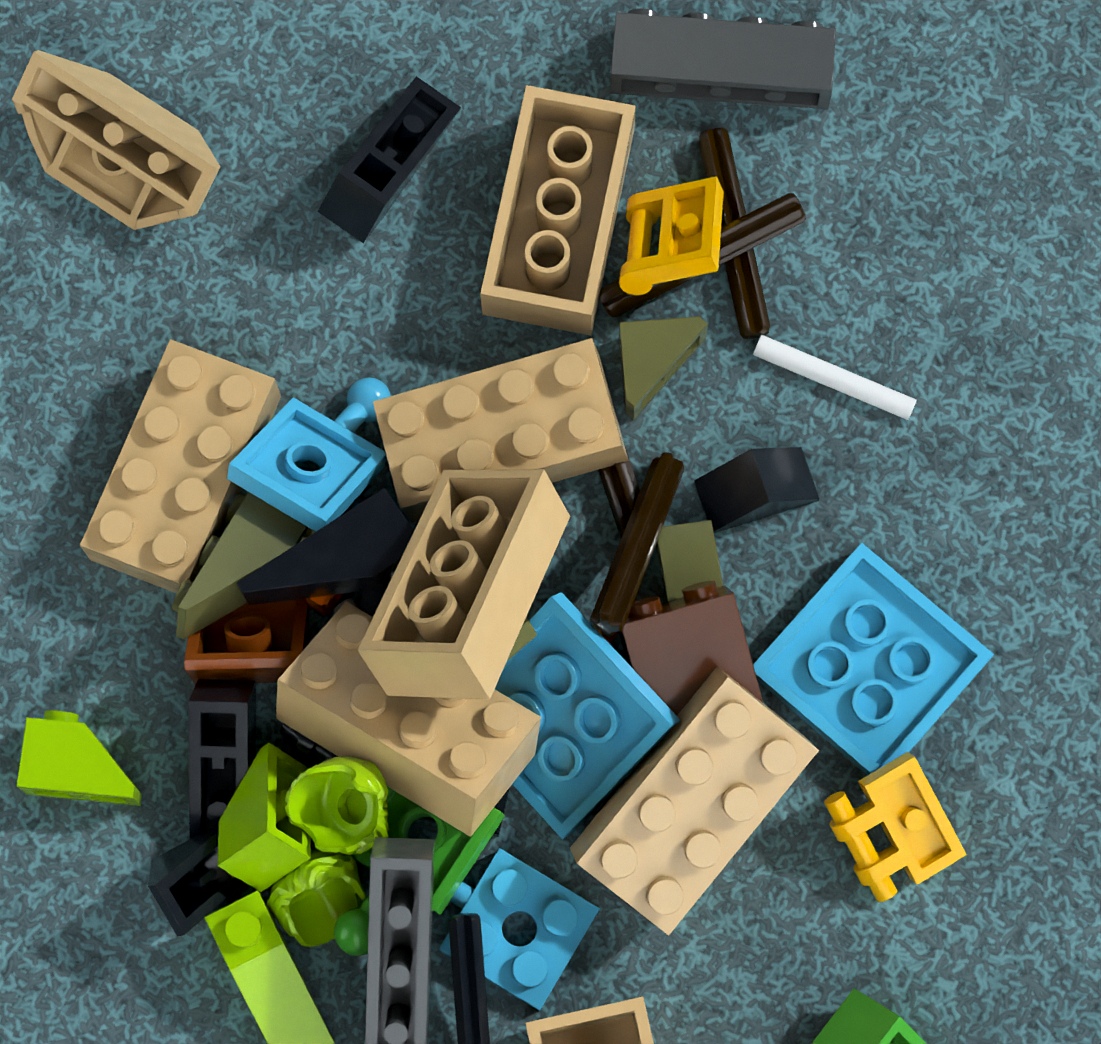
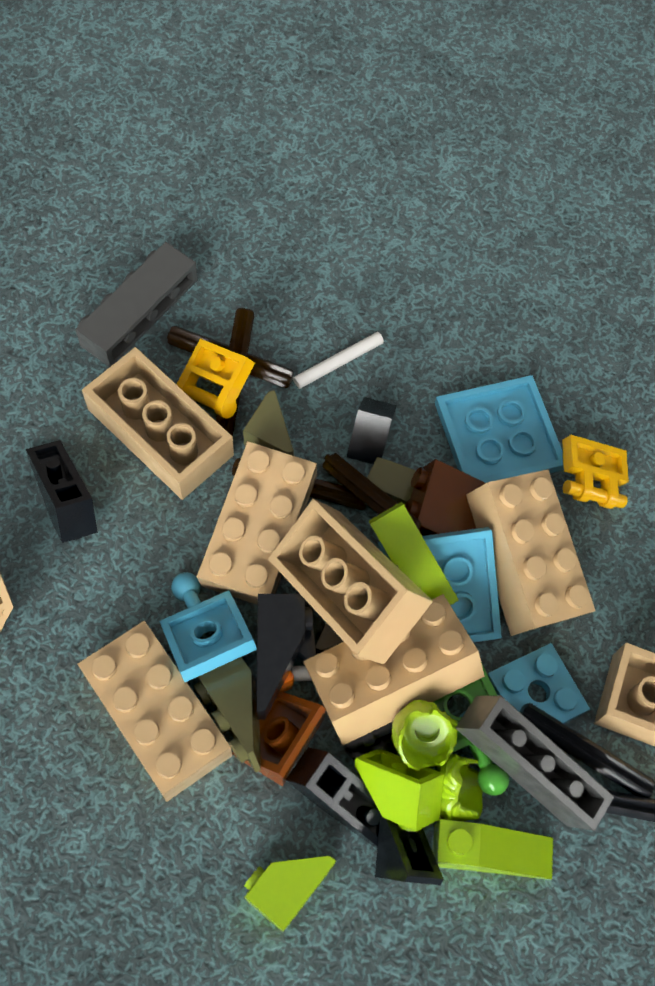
camera: 65 degrees left, 10 degrees down
(564, 646) = (410, 552): none -> lime tile

